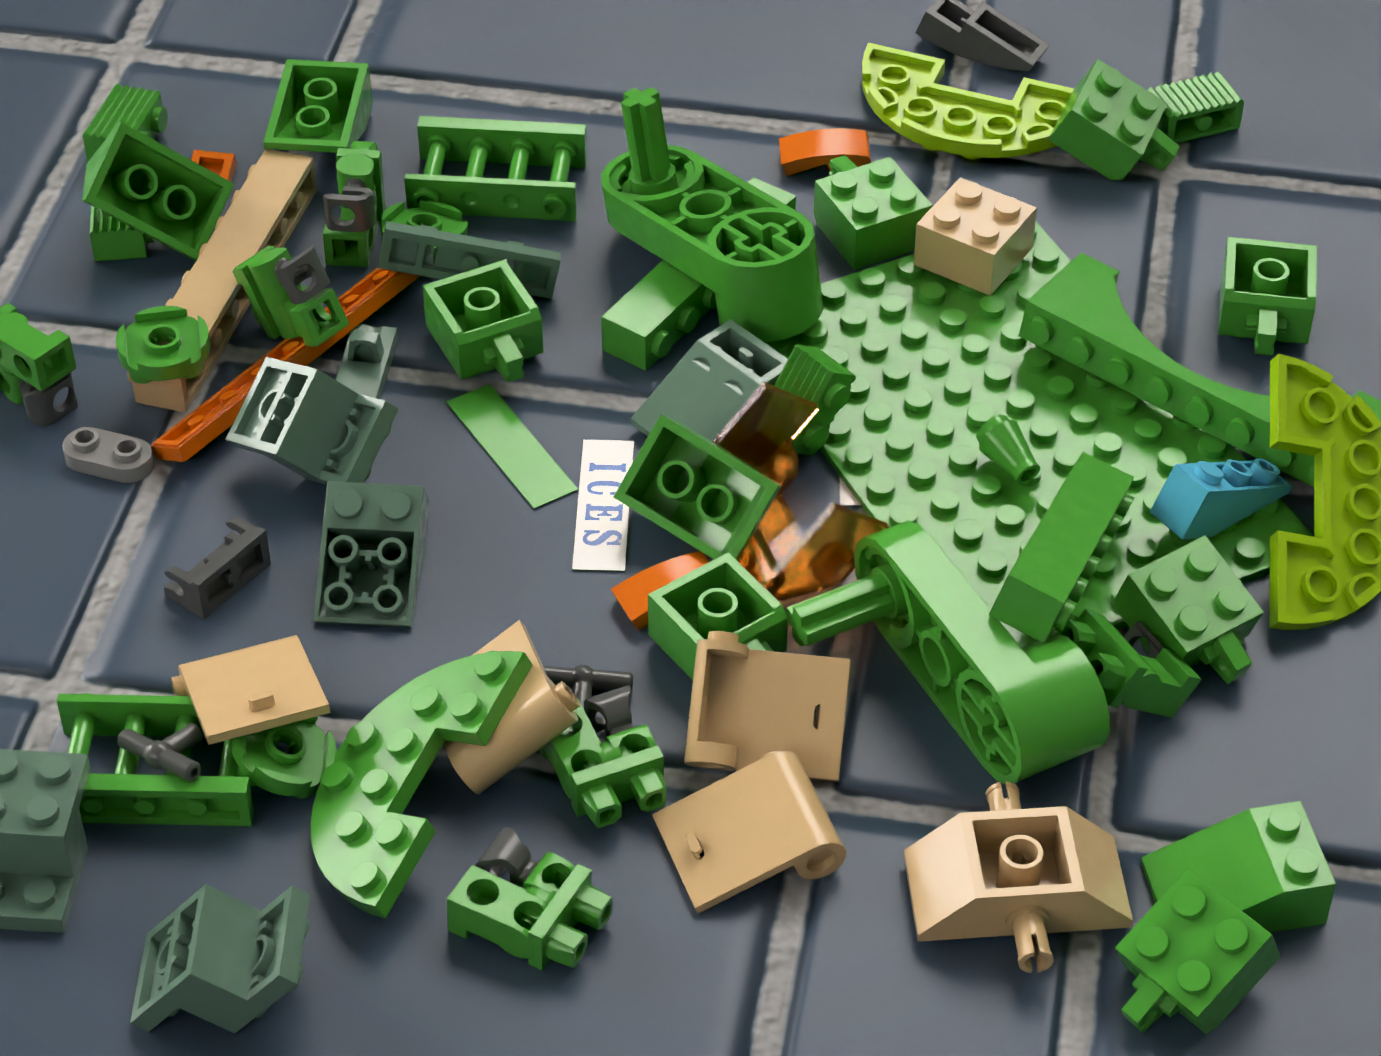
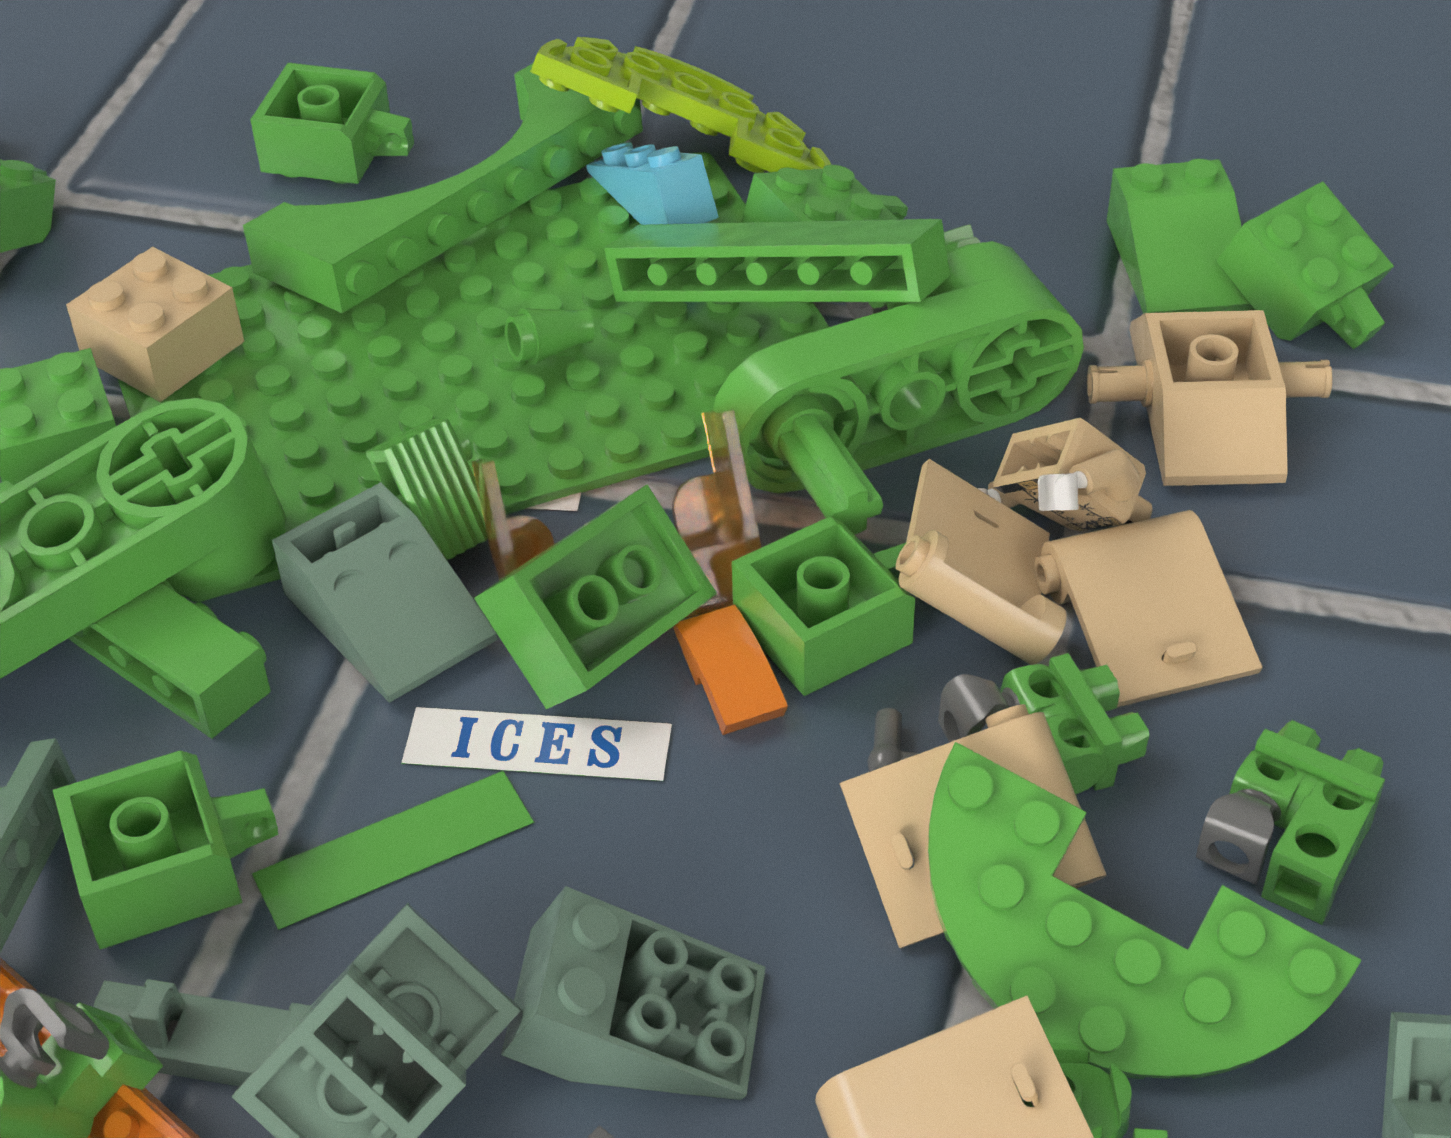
camera: 85 degrees left, 0 degrees up
(852, 758) = (1071, 477): none -> tan torso

